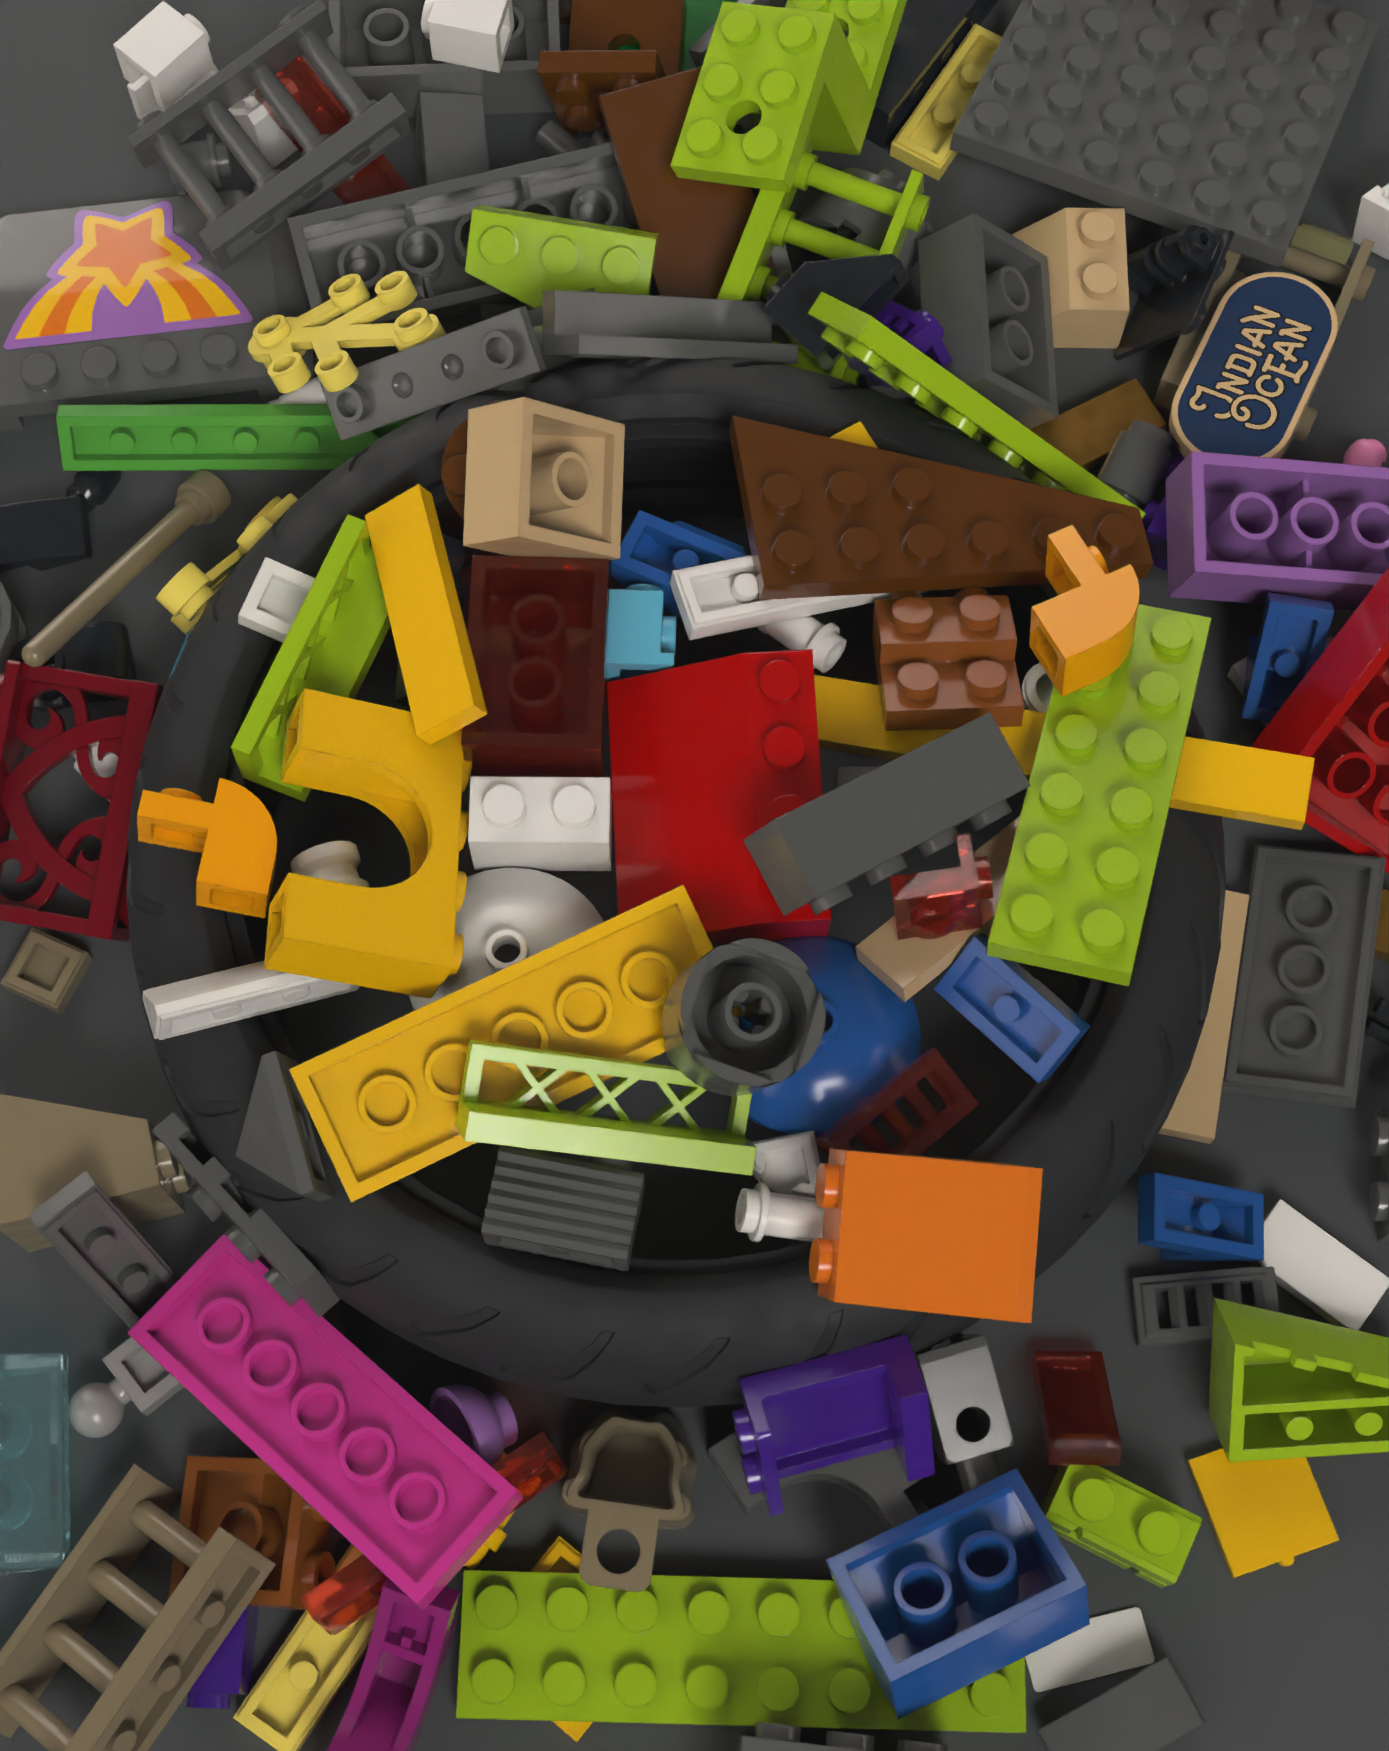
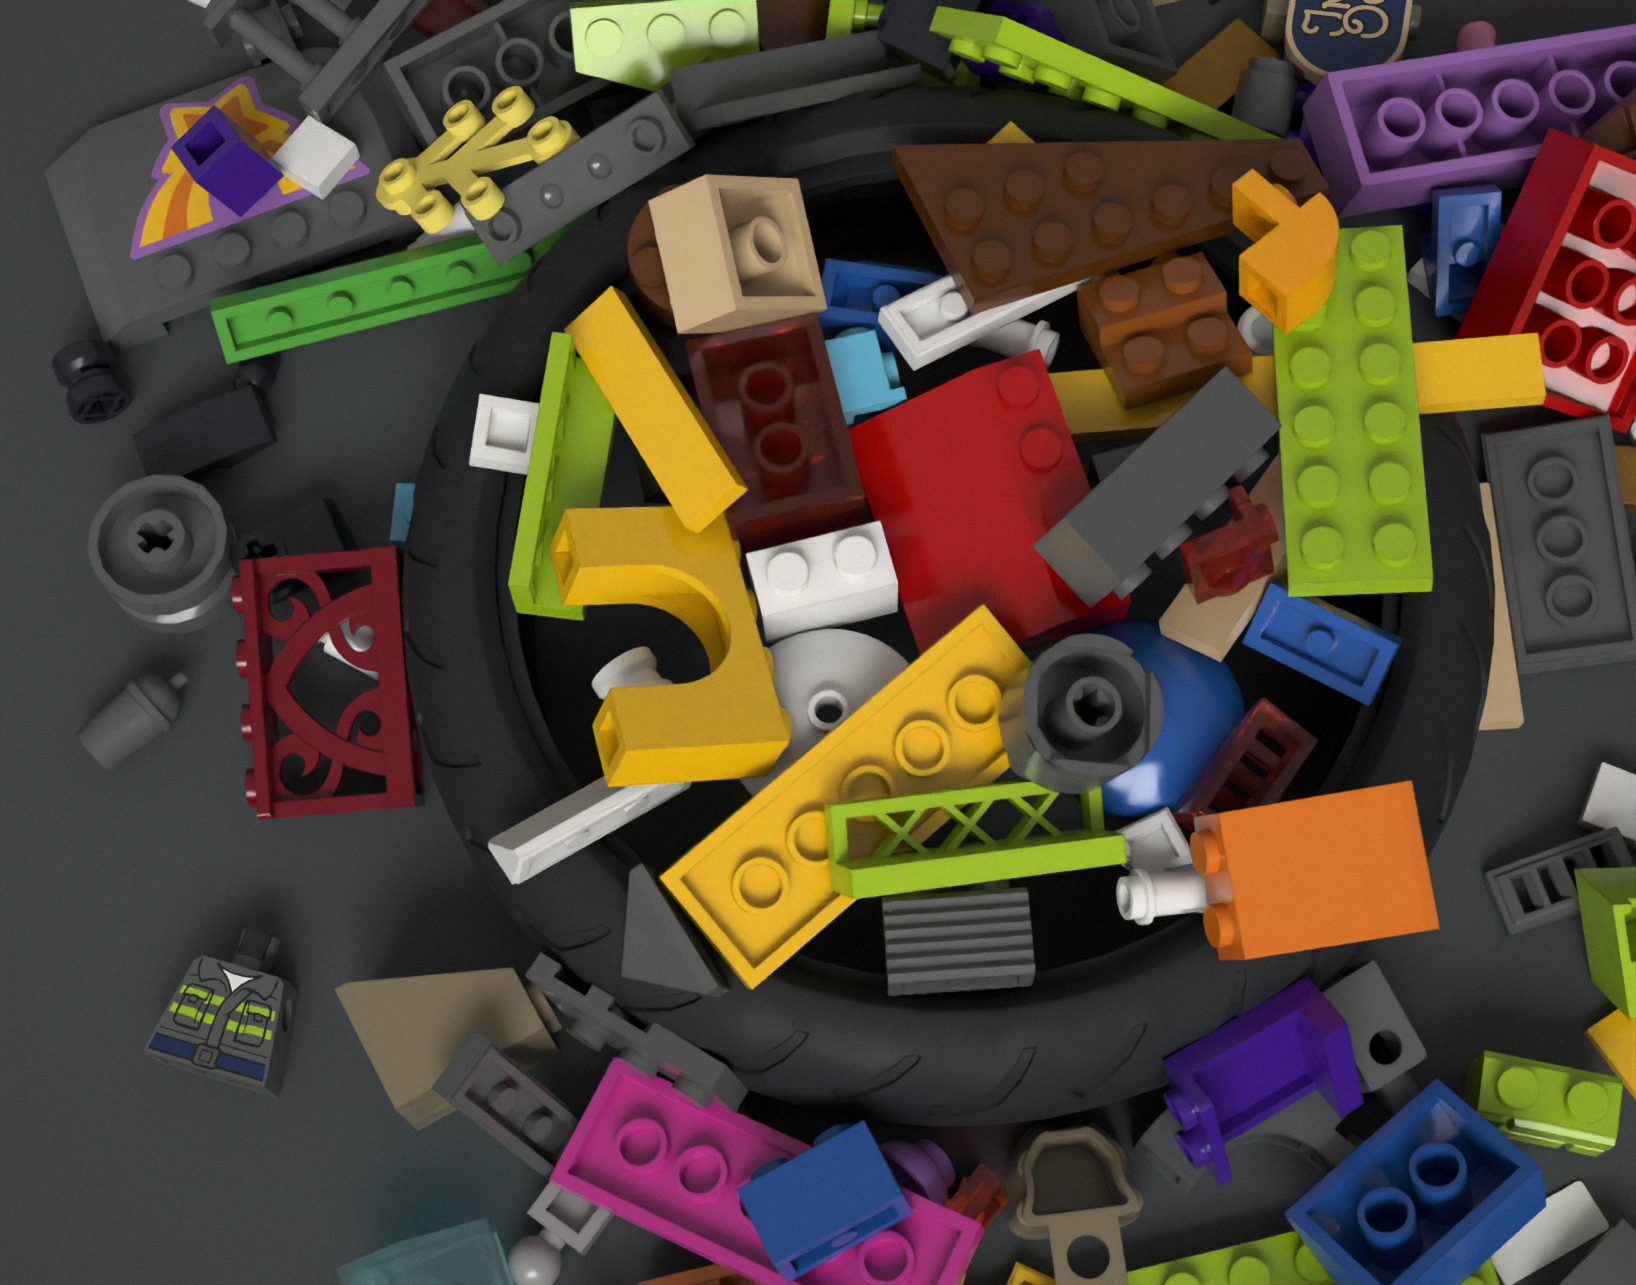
camera: 10 degrees left, 0 degrees up
(46, 971) = (354, 855): dark tan tile -> none
(114, 277) = (227, 161): none -> dark purple brick
(192, 590) = (405, 443): light yellow plant -> none
(198, 502) = (367, 361): dark tan piece -> none
(204, 294) = (316, 157): none -> white tile
(231, 834) = (529, 667): light orange brick -> none
(371, 1426) = (823, 1199): none -> blue brick
(1076, 1408) = (1472, 1008): clear red tile -> none
(1199, 1220) = (1535, 801): blue slope -> none

